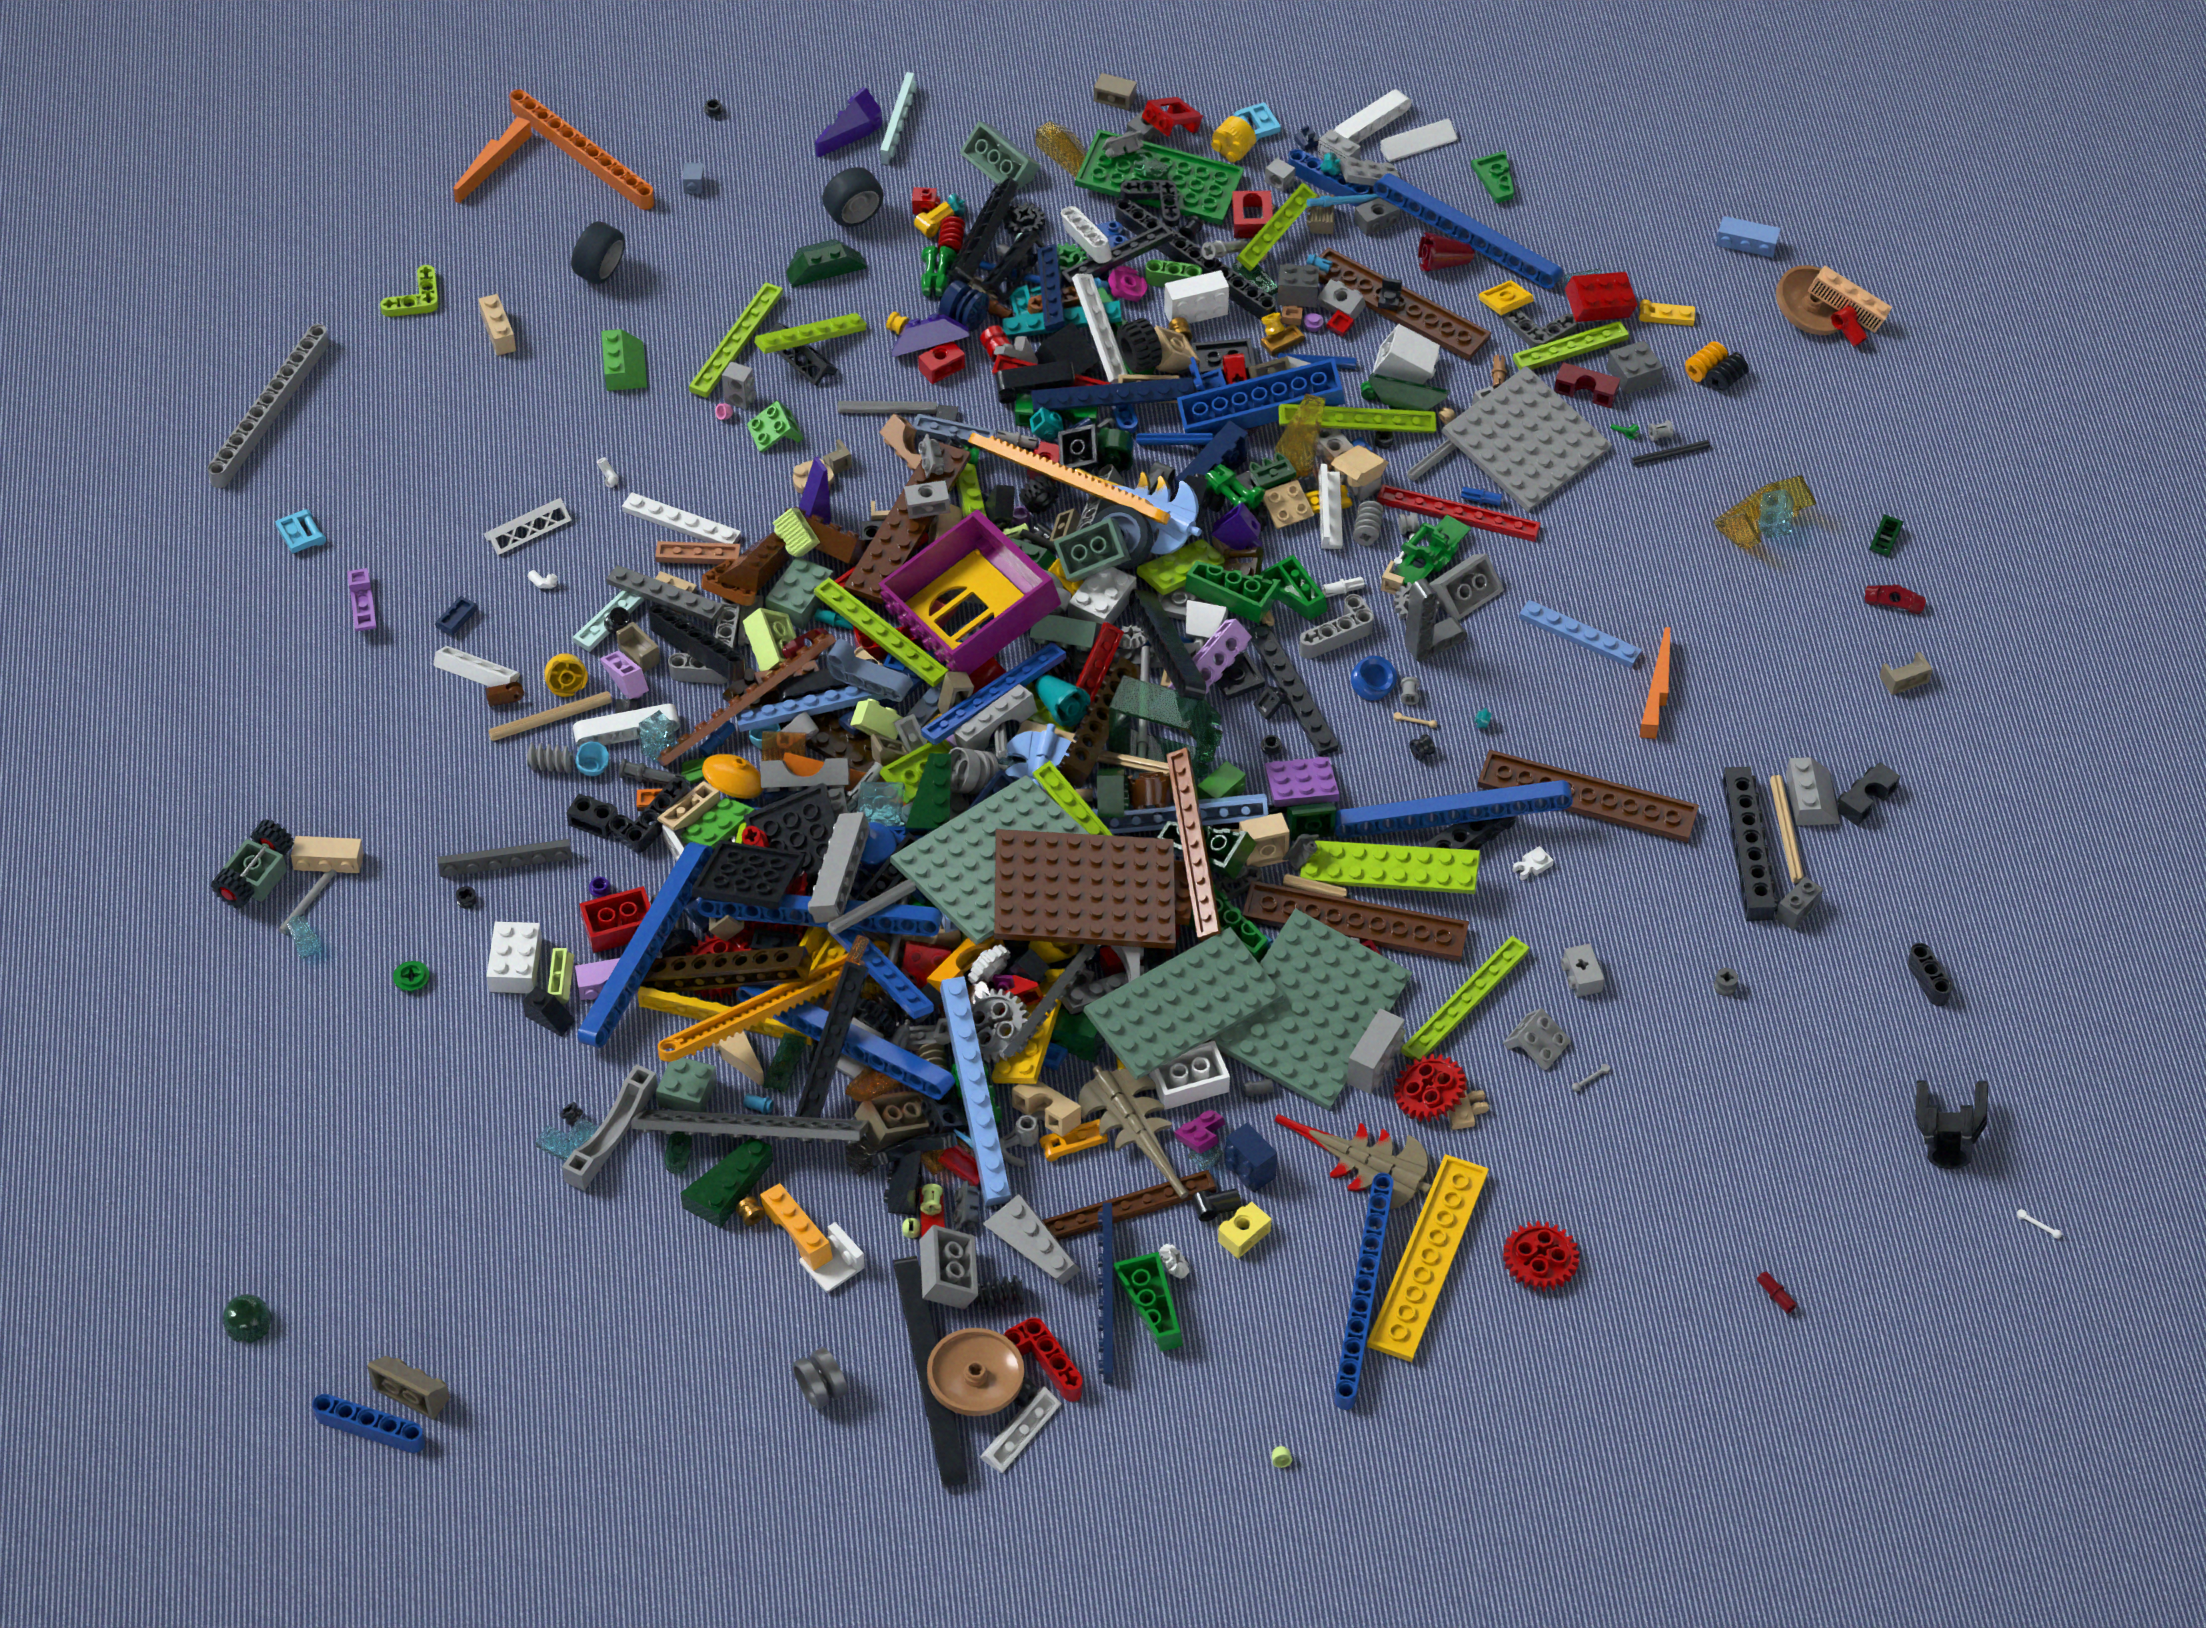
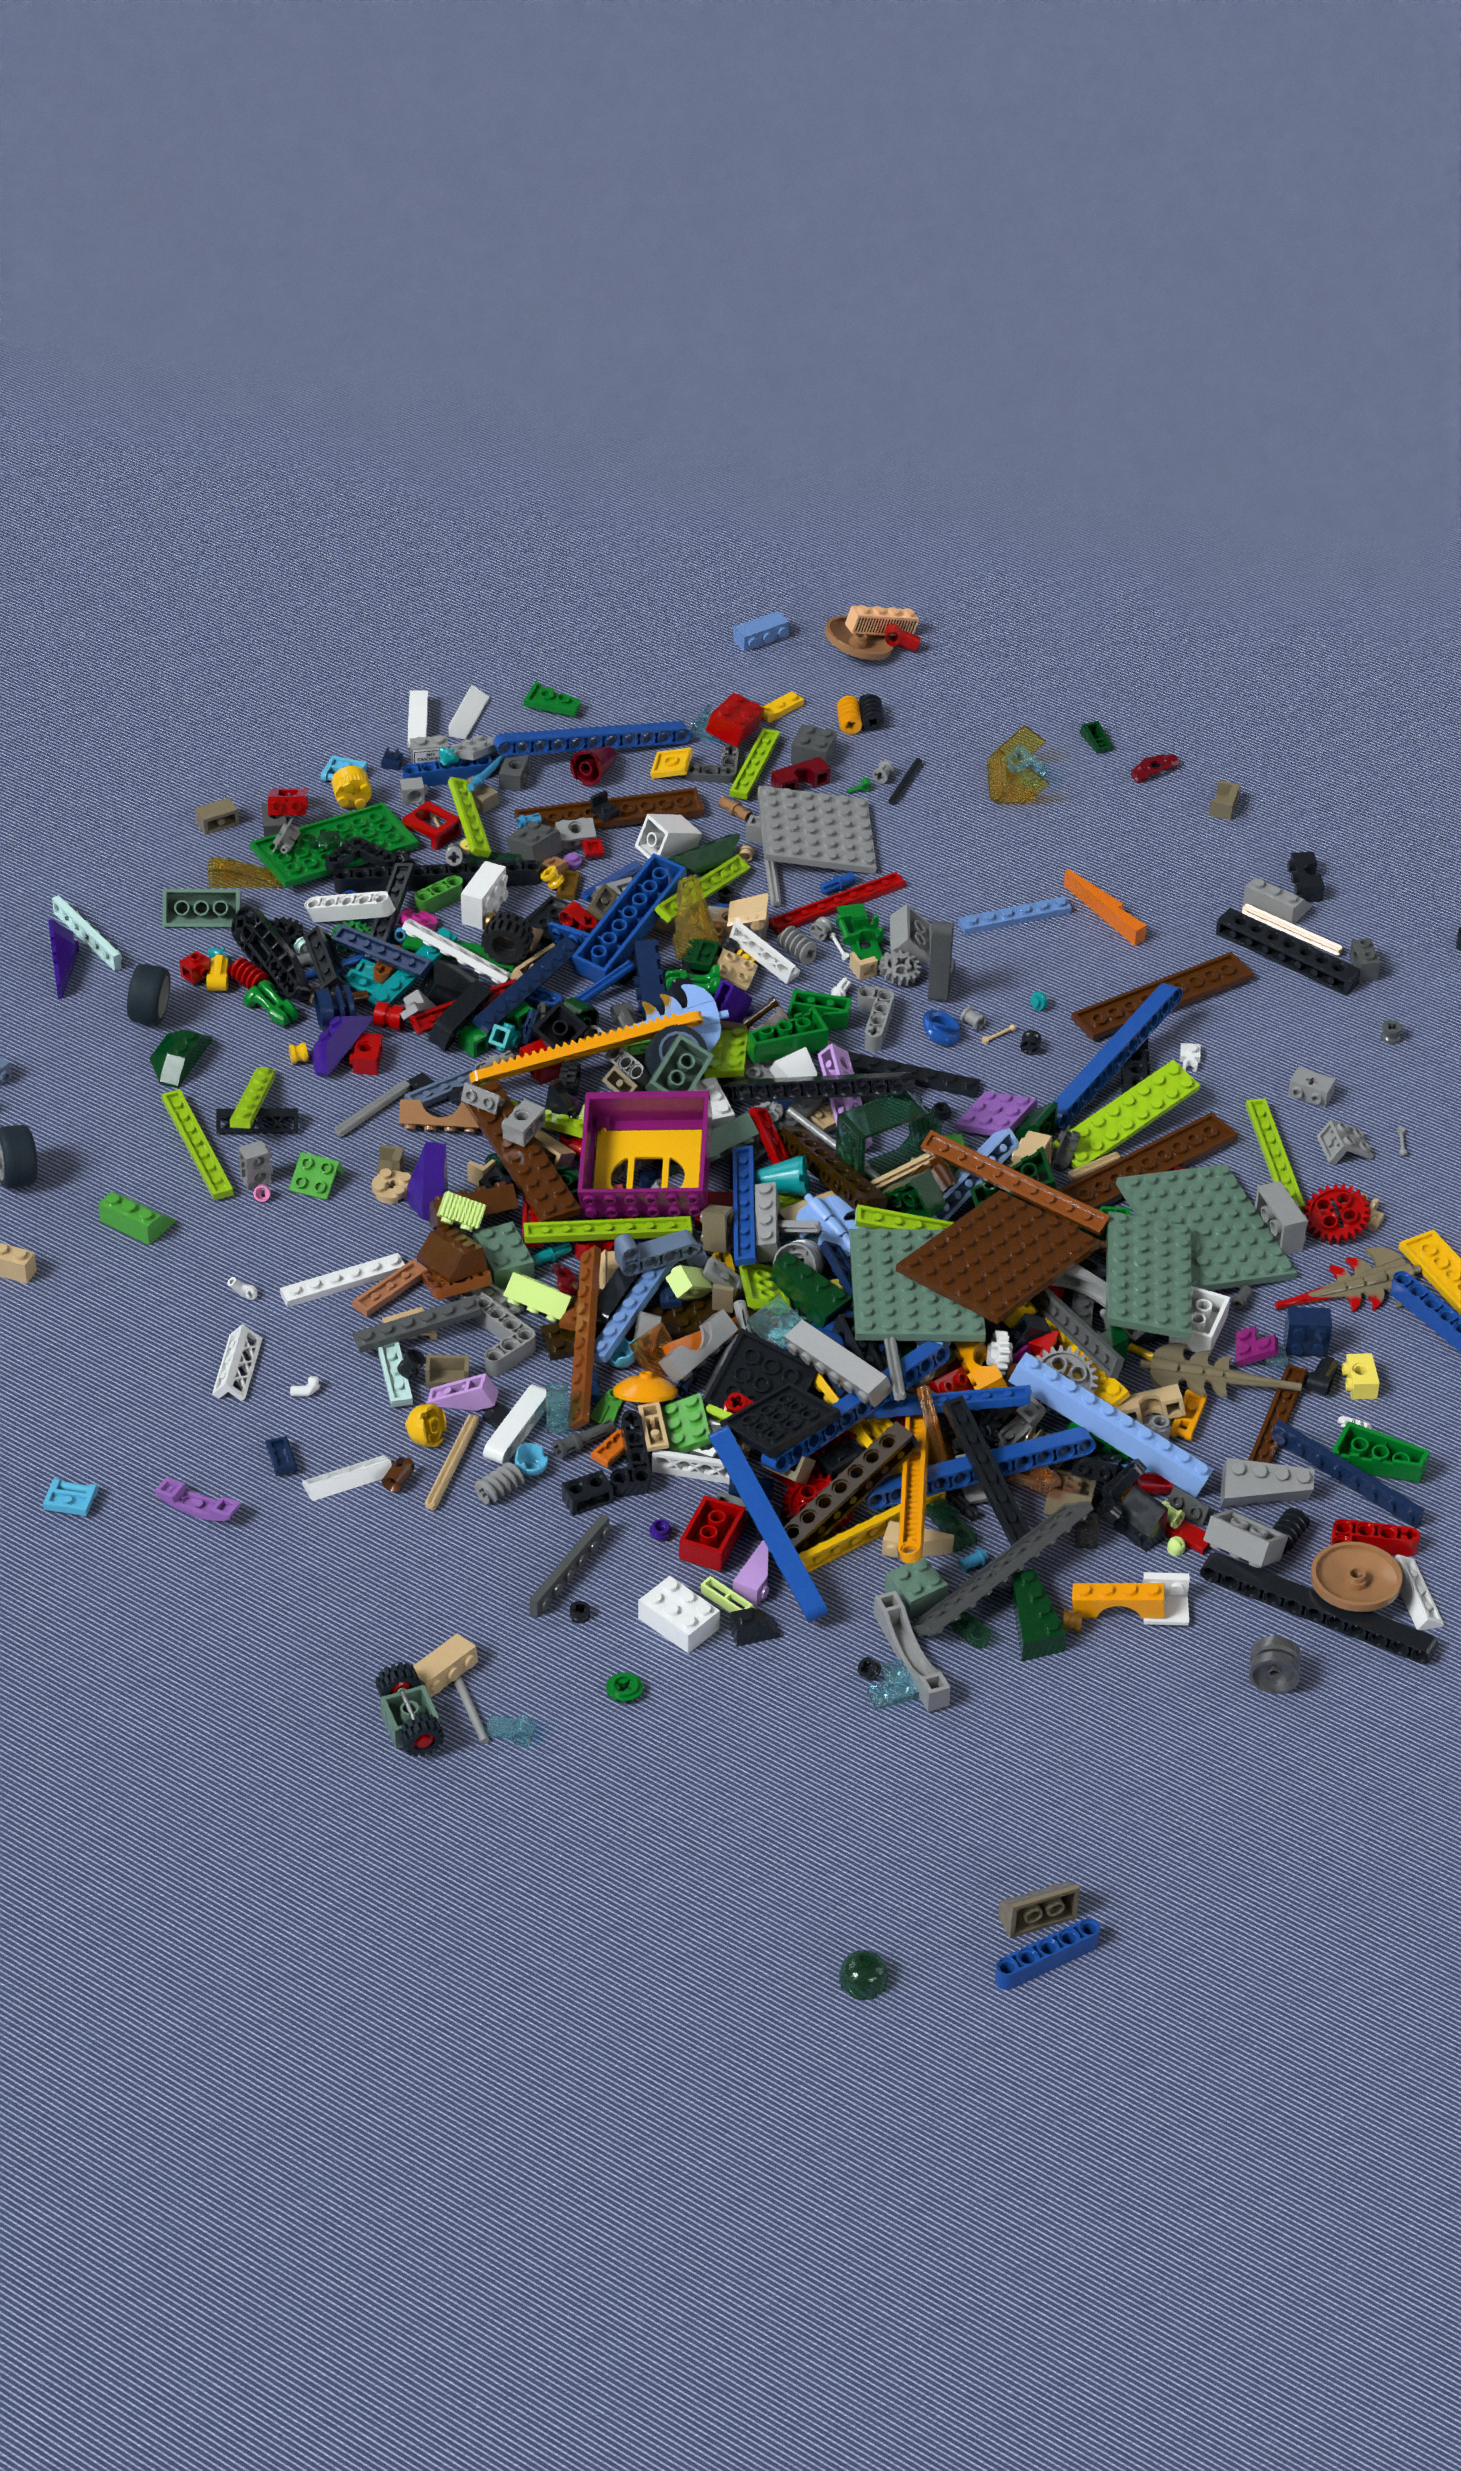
camera: 50 degrees left, 10 degrees down
(697, 642) = (495, 1330): black beam -> none

